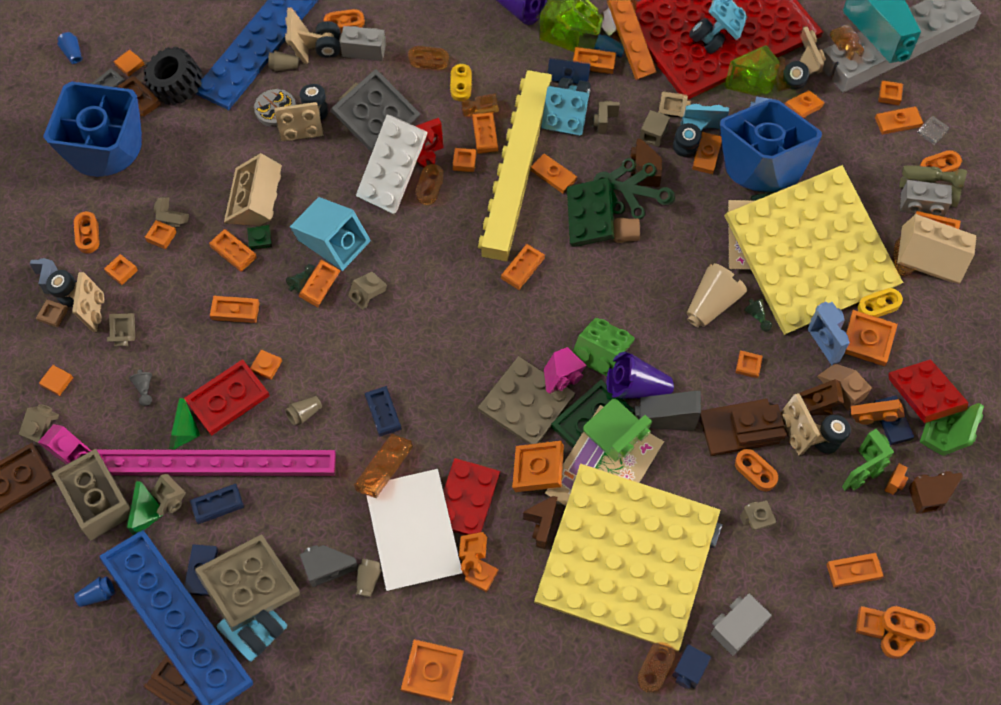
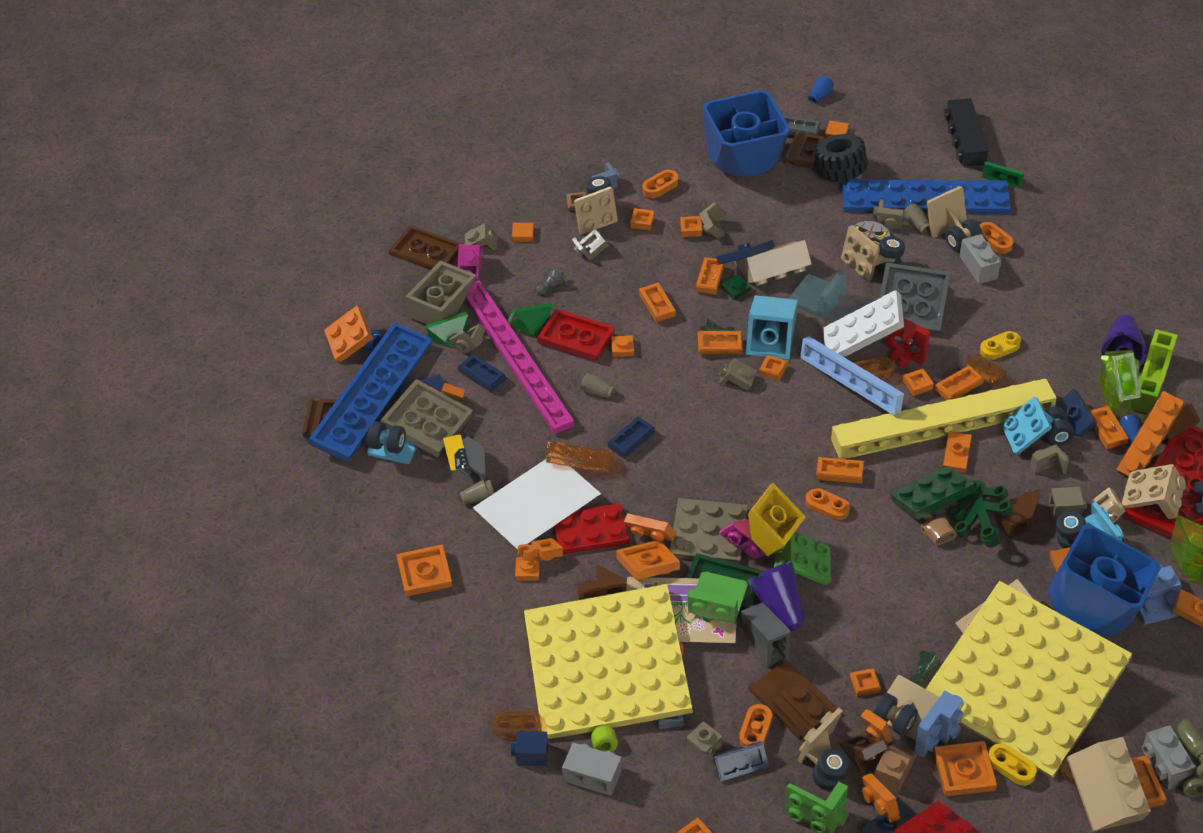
camera: 65 degrees right, 15 degrees down
(81, 608) = (348, 334): none -> orange plate
(229, 542) = (453, 392): none -> orange tile
(234, 206) = (744, 251): none -> dark blue plate
(266, 81) = (888, 217): none -> dark tan bracket
(314, 574) = (455, 452): none -> yellow sticker
(317, 178) = (820, 295): none -> clear light blue bracket
(375, 257) = (773, 367): none -> orange tile
(429, 57) = (1008, 314): clear orange plate -> none
(434, 202) = (852, 376): none -> light blue plate
(495, 455) = (645, 526): none -> orange plate
(552, 295) = (827, 504): none -> orange plate
(576, 341) = (773, 520): none -> yellow slope
(681, 65) = (1155, 486): none -> tan bracket
(707, 599) = (604, 738): none -> lime piece
(714, 295) = (912, 619): tan cone -> none
(785, 499) = (740, 761): none -> plate
(797, 349) = (905, 706): none -> tan plate
(812, 379) = (876, 726): none -> orange plate

